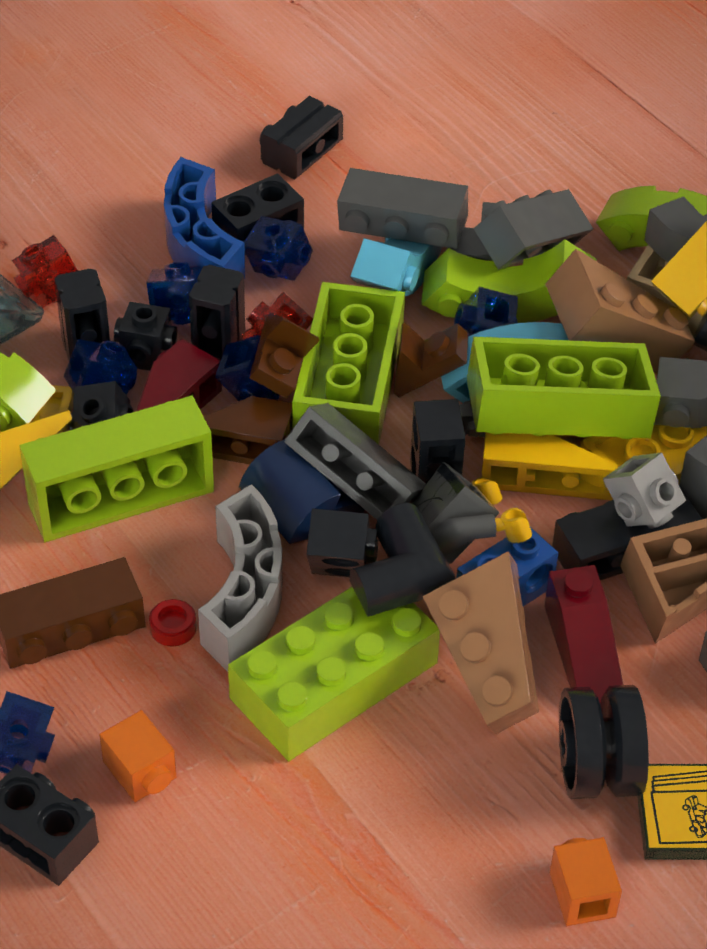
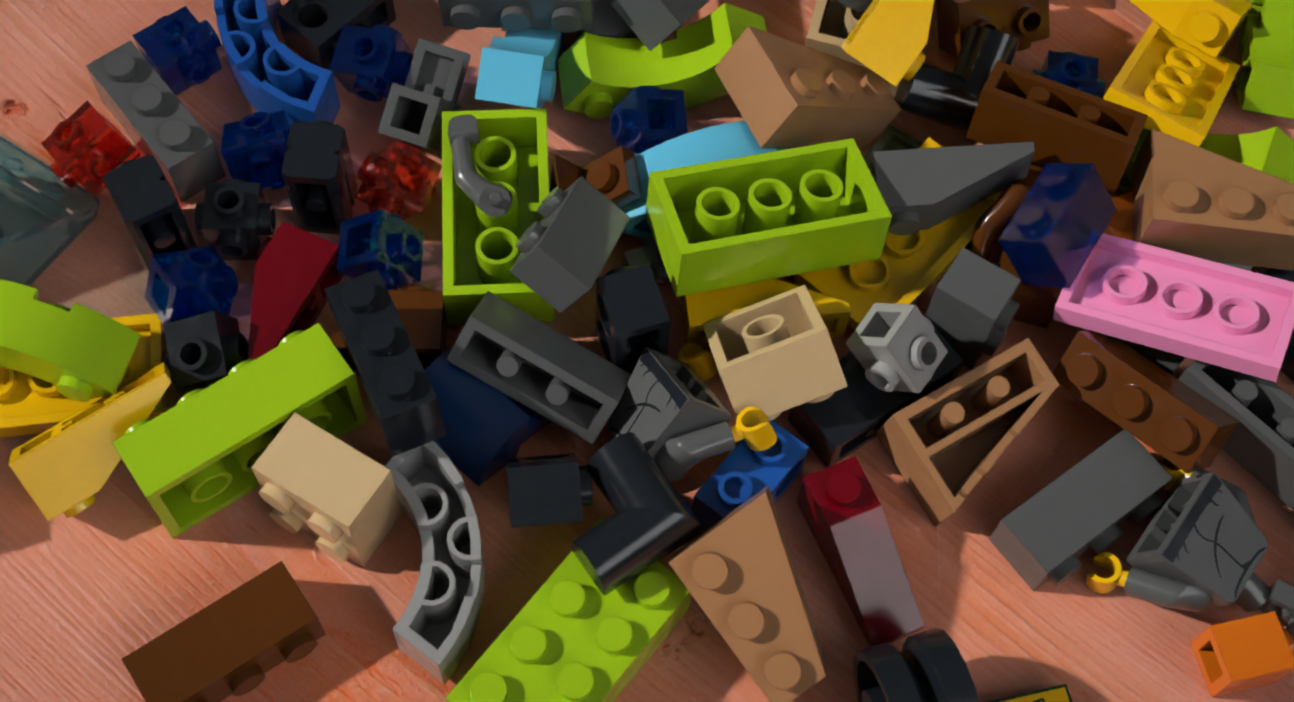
camera: 15 degrees left, 15 degrees up
(96, 246) = (156, 120): none -> dark grey brick
(130, 218) = (180, 49): none -> clear blue brick
(172, 518) = (327, 491): none -> tan brick
(172, 622) = (359, 625): red tile -> none
(237, 432) = (386, 362): none -> black brick
(281, 354) = (413, 230): reddish brown slope -> none
(323, 262) = (431, 87): none -> dark grey brick
(344, 340) = (489, 197): none -> dark grey piece
(398, 378) = (569, 243): none -> dark grey brick
(546, 483) = (775, 354): none -> tan brick

